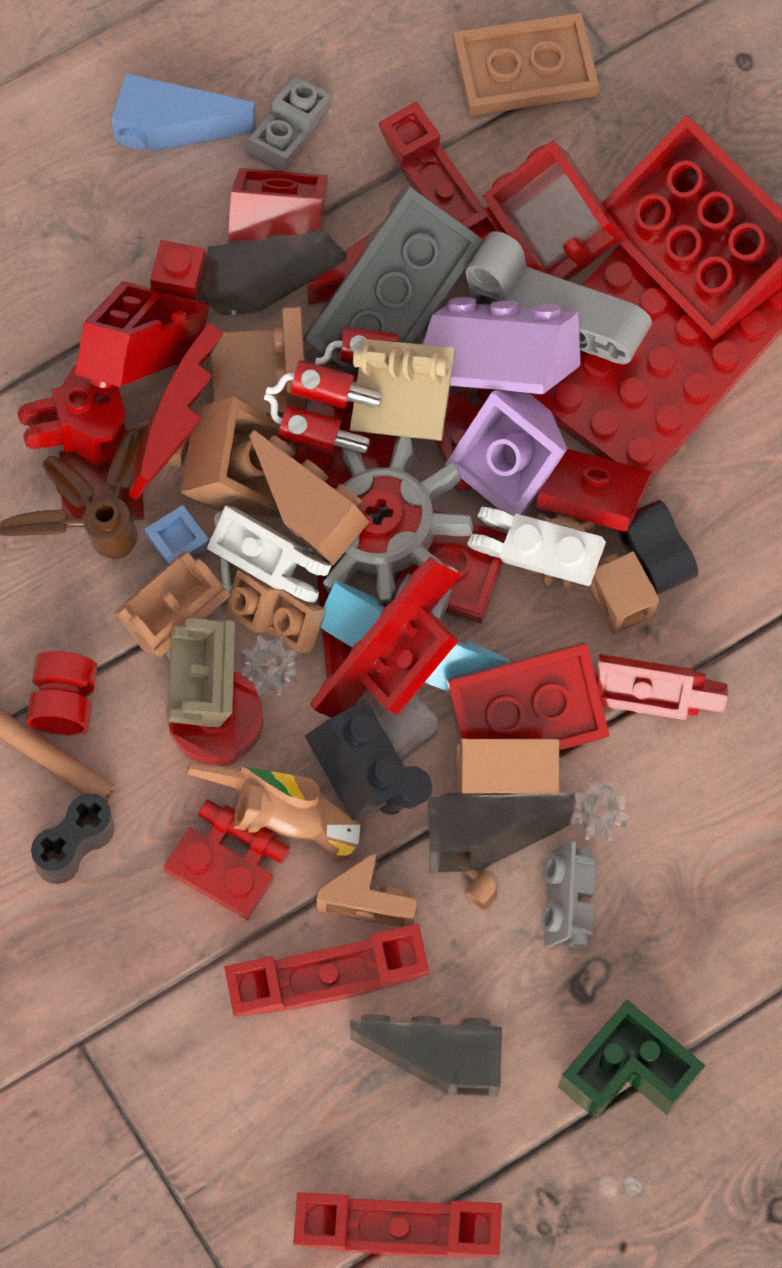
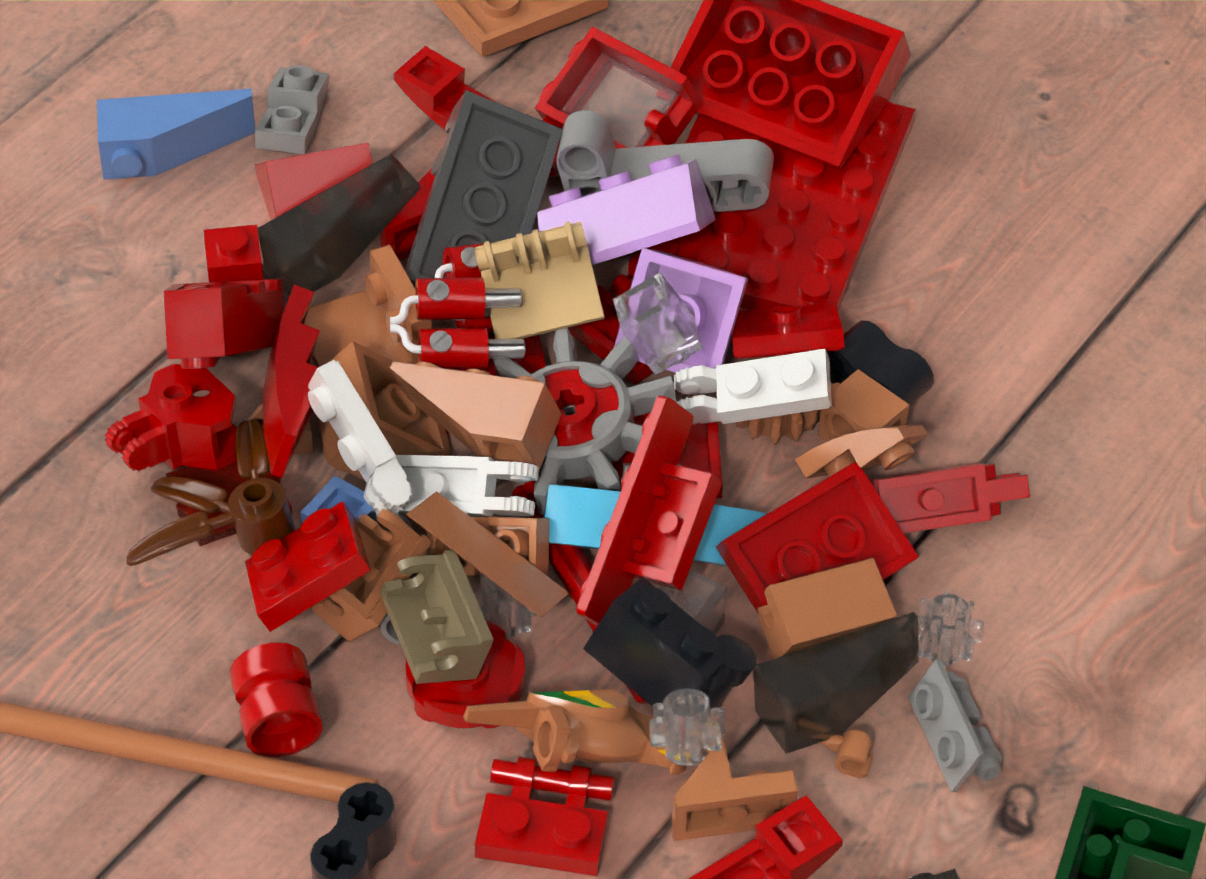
camera: 20 degrees left, 20 degrees down
(125, 587) = (306, 565): none -> red plate
(199, 500) = (360, 438): none -> white hinge
(262, 629) = (488, 554): none -> nougat sticker
(351, 836) = (687, 726): none -> clear gear
(477, 466) = (658, 323): none -> clear brick
(600, 632) = (867, 447): none -> nougat slope

